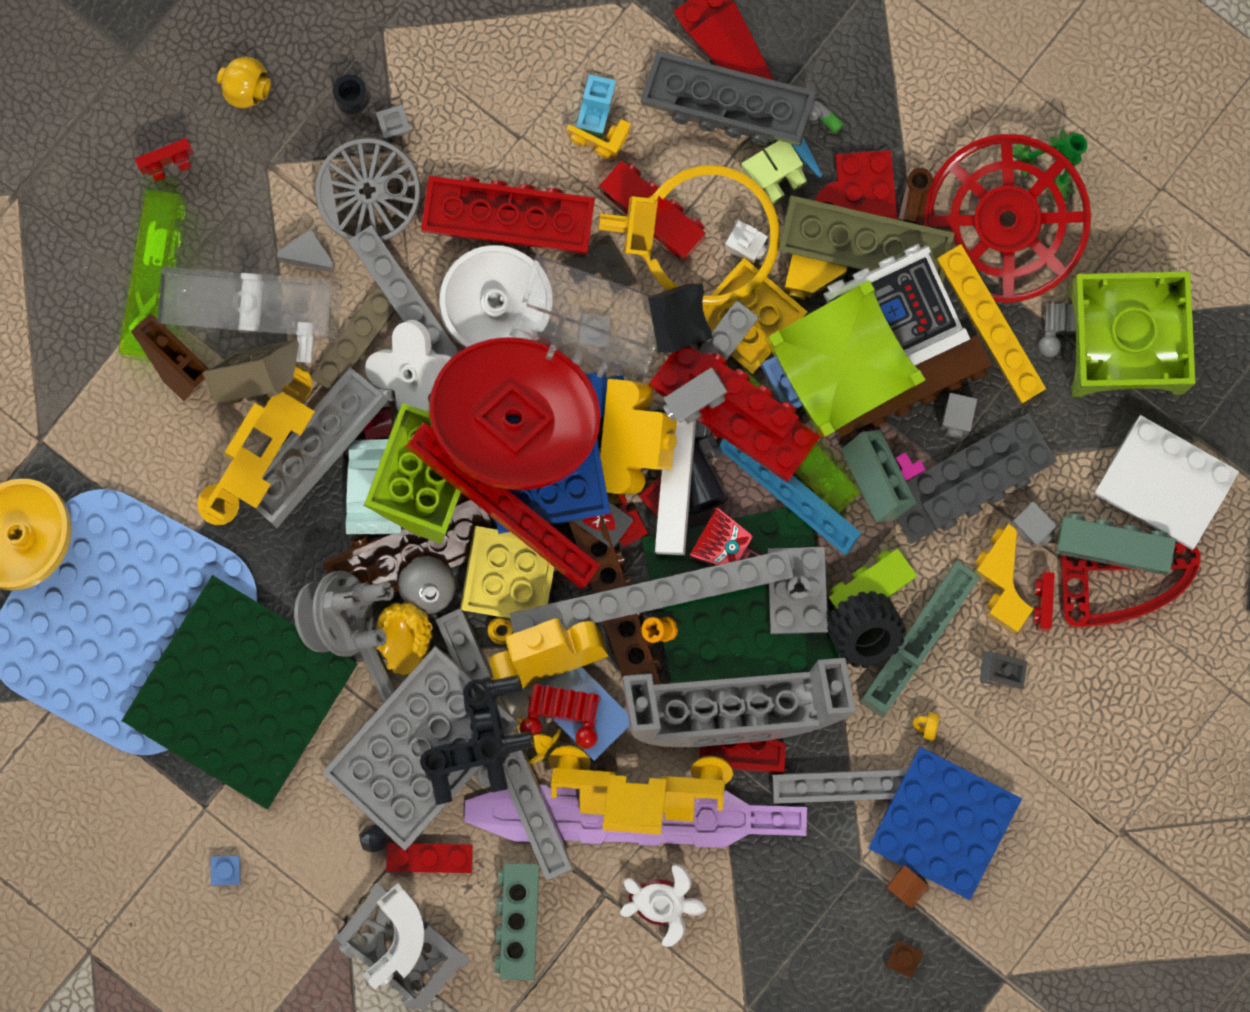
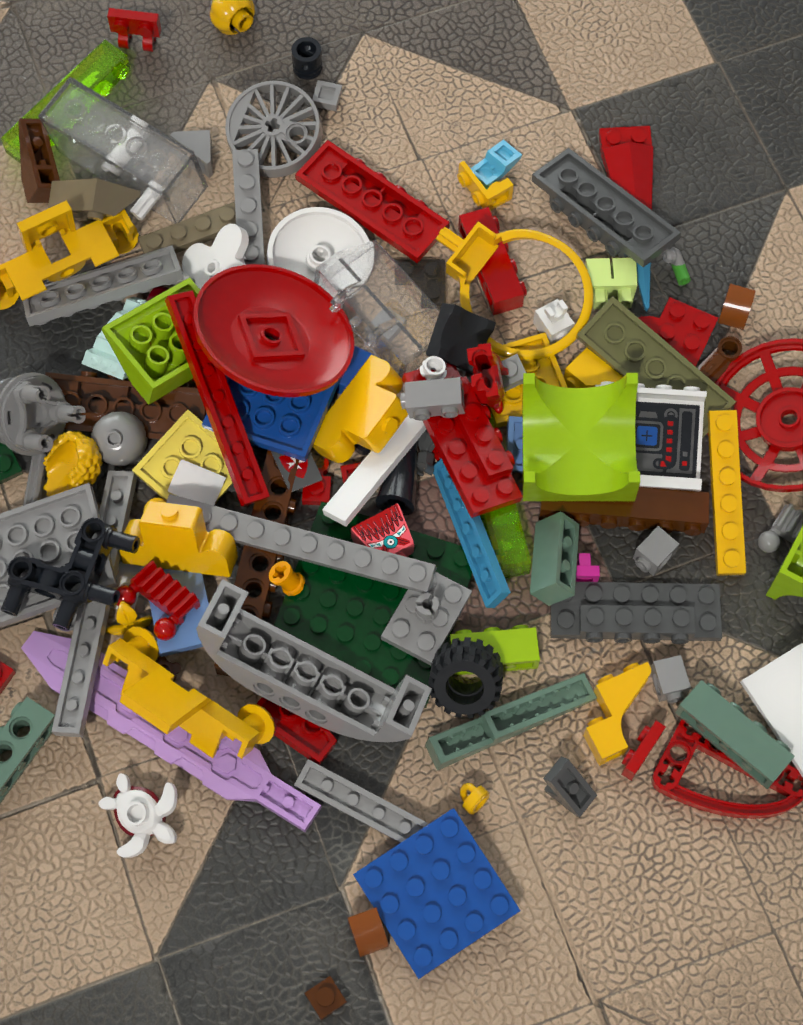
camera: 30 degrees right, 15 degrees down
(524, 588) = (196, 483): none -> white sticker
(676, 358) = (433, 363): none -> white plate
(730, 346) = (487, 376): none -> red animal
(901, 129) = (736, 306): none -> dark orange brick

